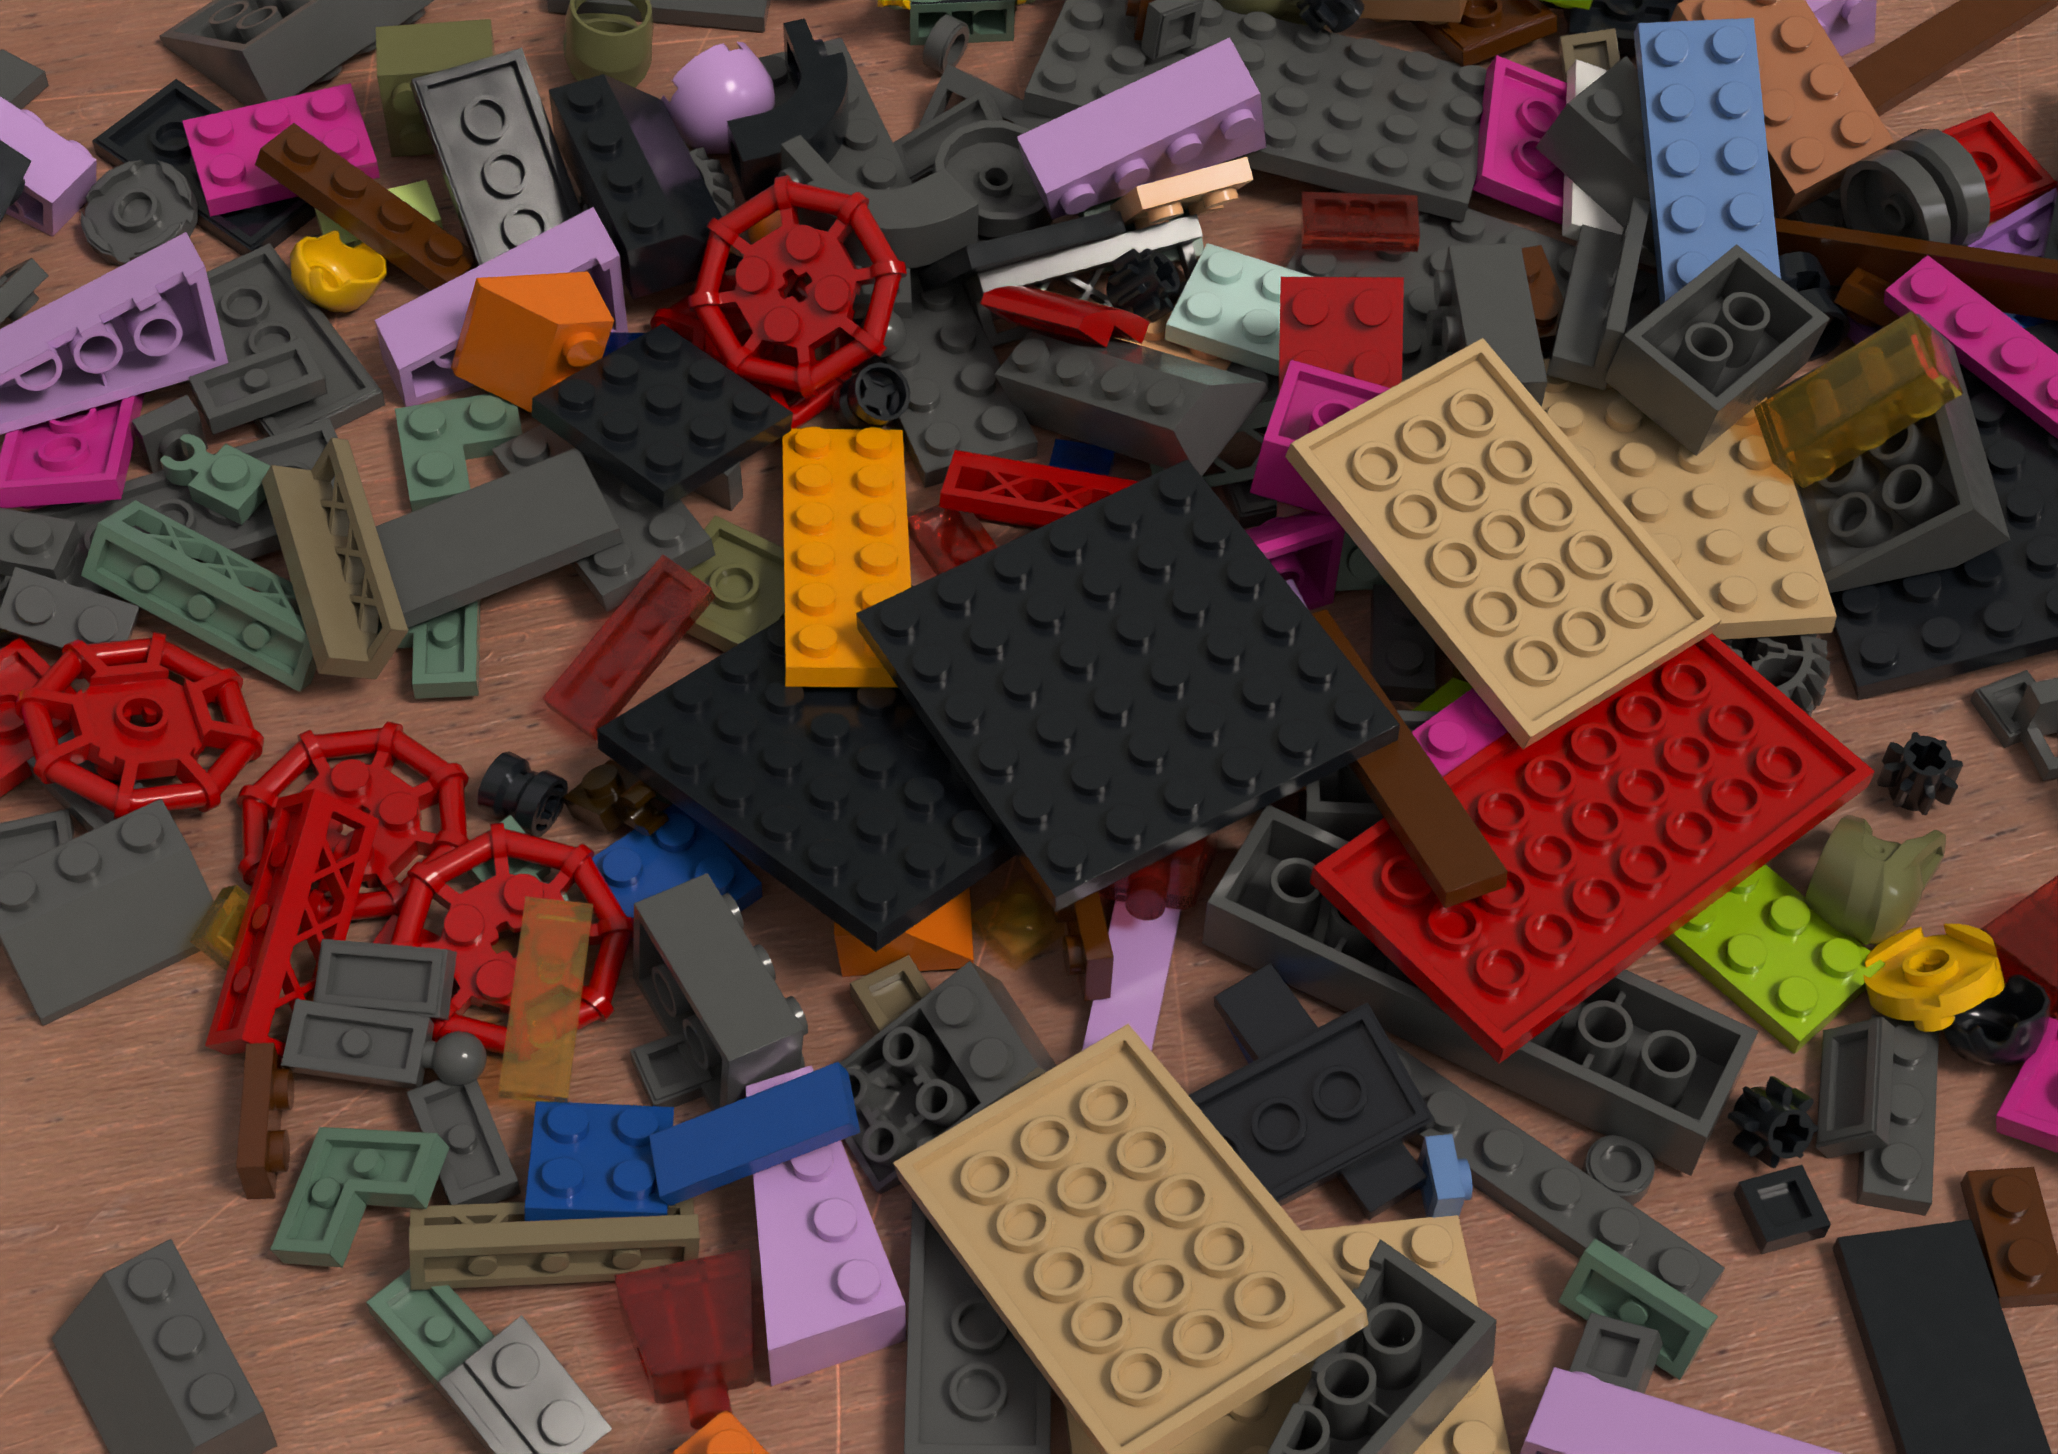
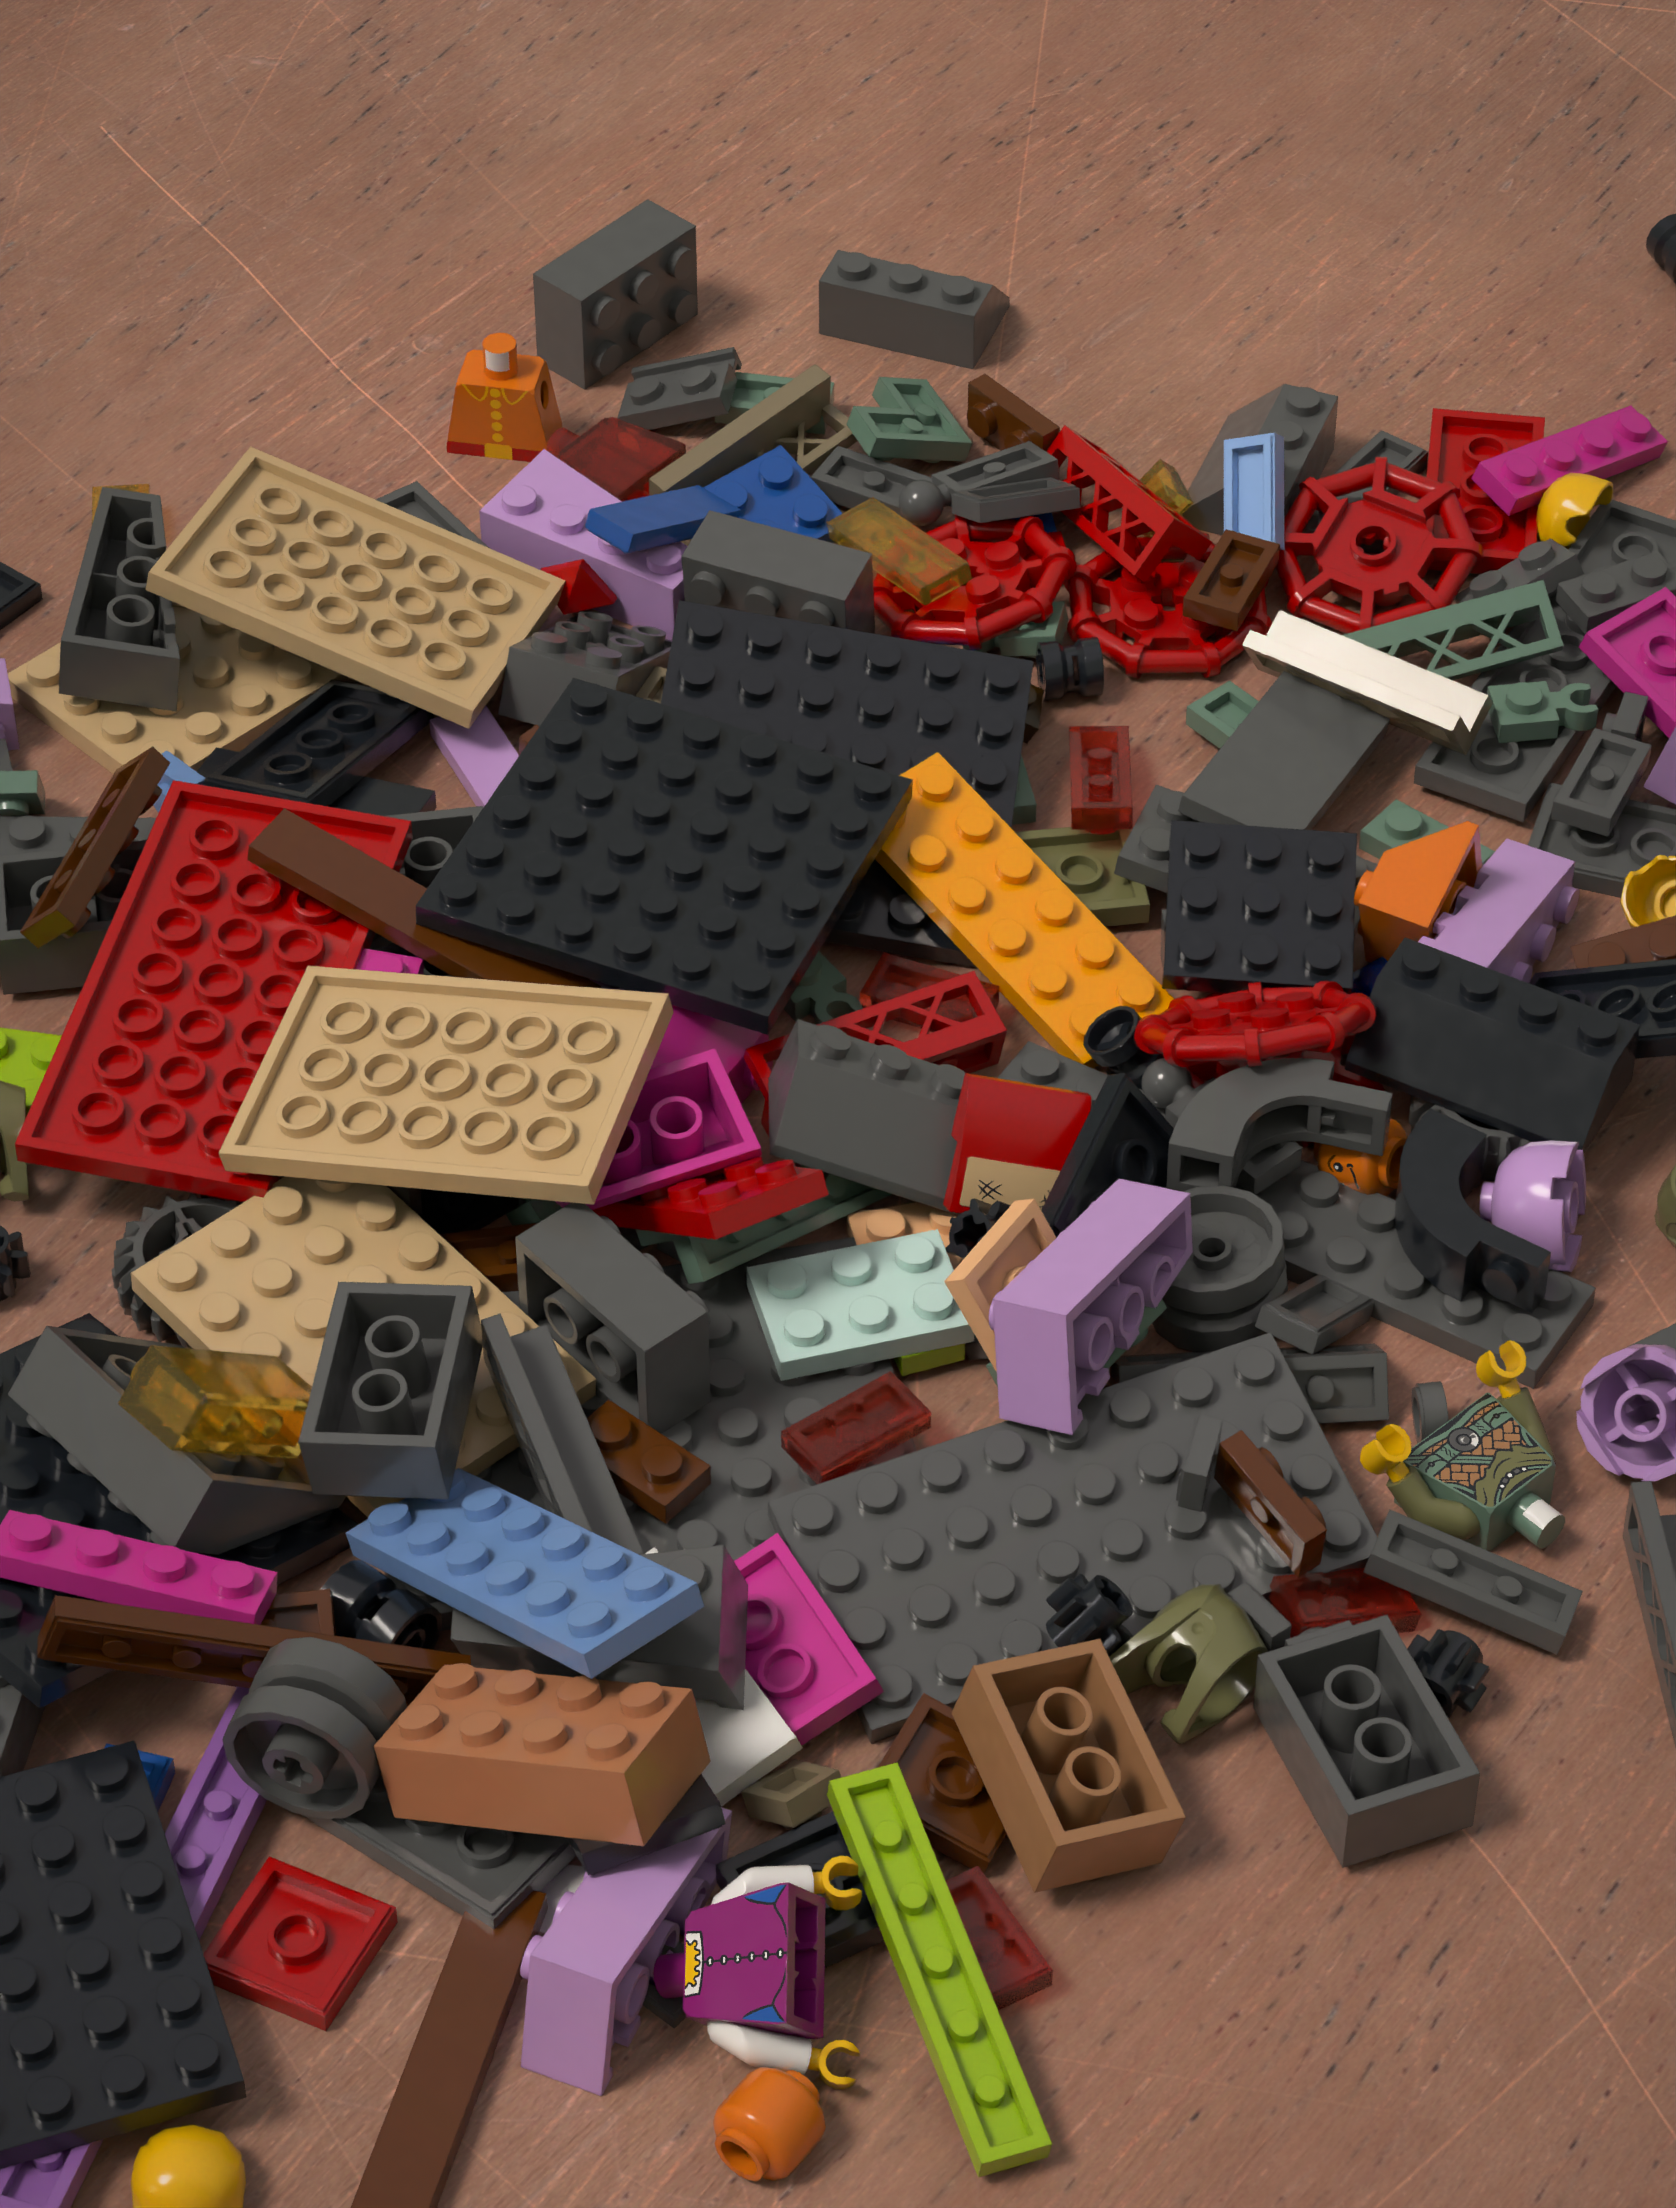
camera: 145 degrees right, 10 degrees down
(192, 806) = (1255, 486): none -> light blue tile
(306, 754) = (1231, 580): none -> reddish brown plate
(877, 1177) = (582, 587): none -> red slope
(1615, 1038) = (89, 859): none -> reddish brown plate

